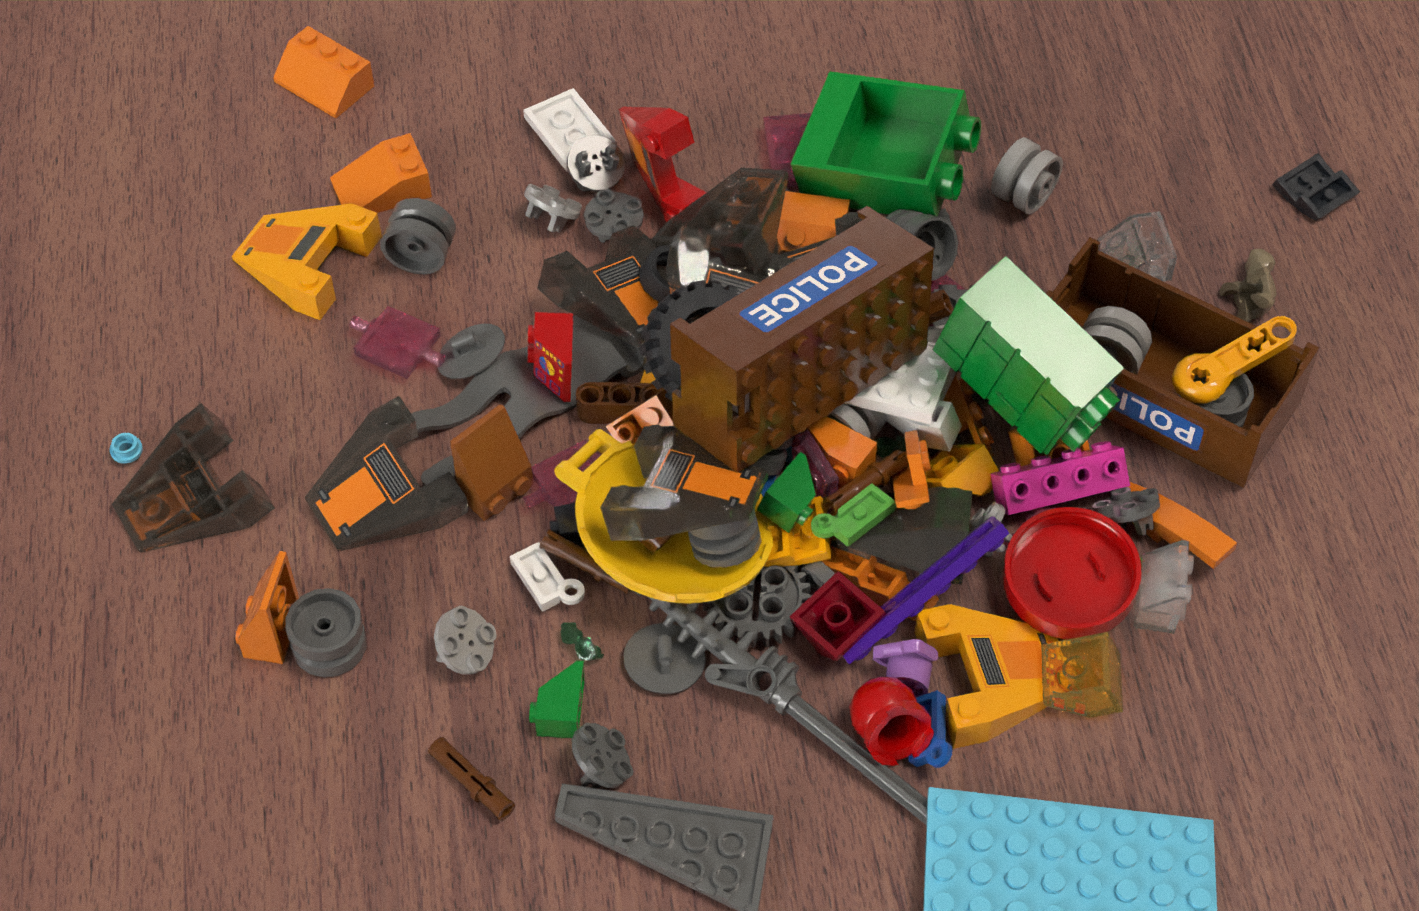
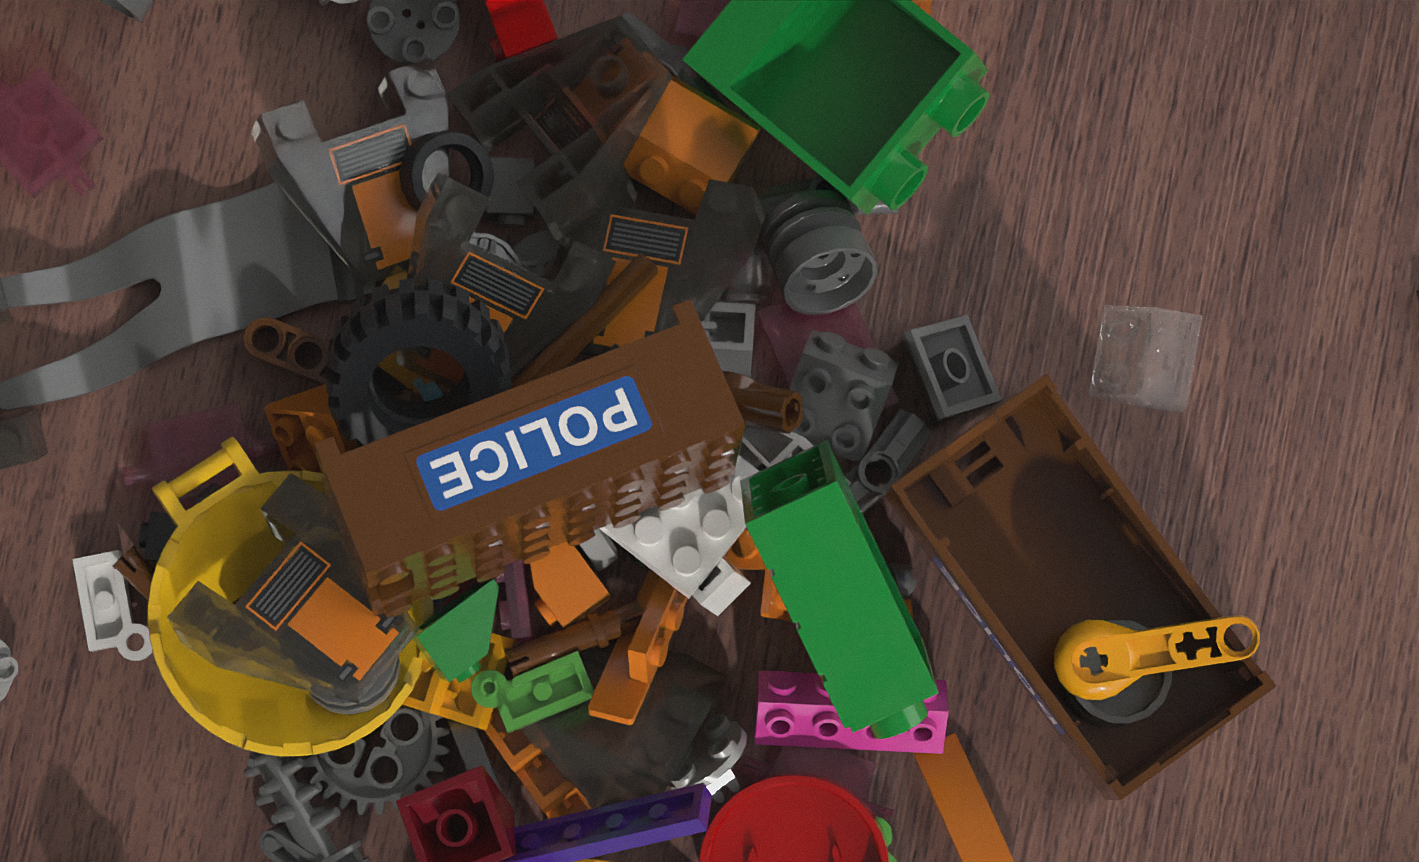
camera: 20 degrees right, 30 degrees up
(471, 351) = (133, 189): dark grey shield -> none
(491, 463) = (86, 423): dark orange slope -> none
(552, 351) = (234, 258): red slope -> none
(560, 703) = (64, 809): green slope -> none
(583, 645) = (124, 728): clear green piece -> none
(660, 661) = (212, 789): dark grey shield -> none
(962, 468) = (717, 650): light orange slope -> none
(1026, 175) = (1047, 175): light grey wheel -> none
(1121, 335) = (1012, 537): light grey wheel -> none
(1130, 507) = (924, 809): dark grey plate -> none
(1257, 291) = (1286, 481): dark tan animal -> none

